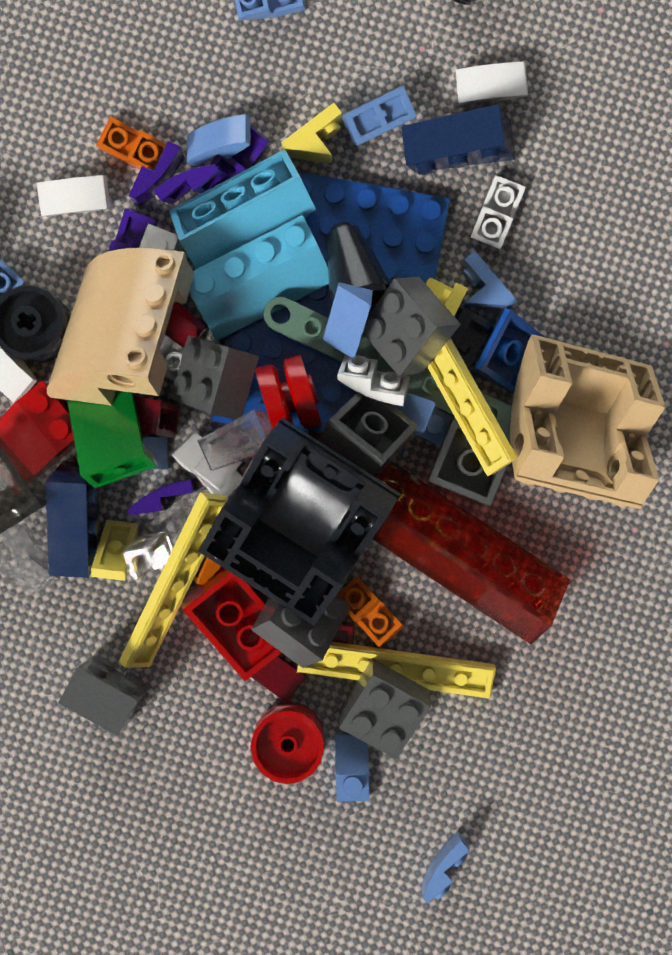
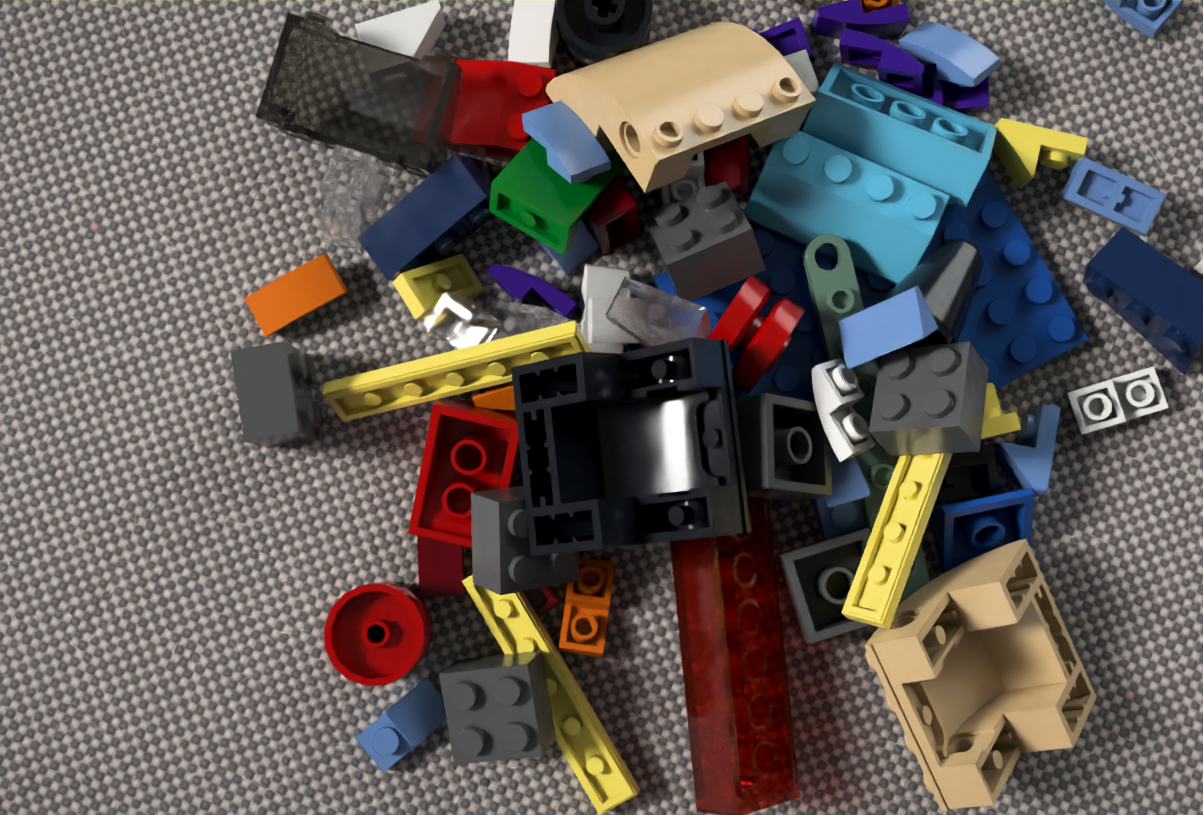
camera: 50 degrees right, 5 degrees down
(53, 636) = (296, 294): none -> orange slope
(91, 412) = (568, 142): none -> medium blue slope

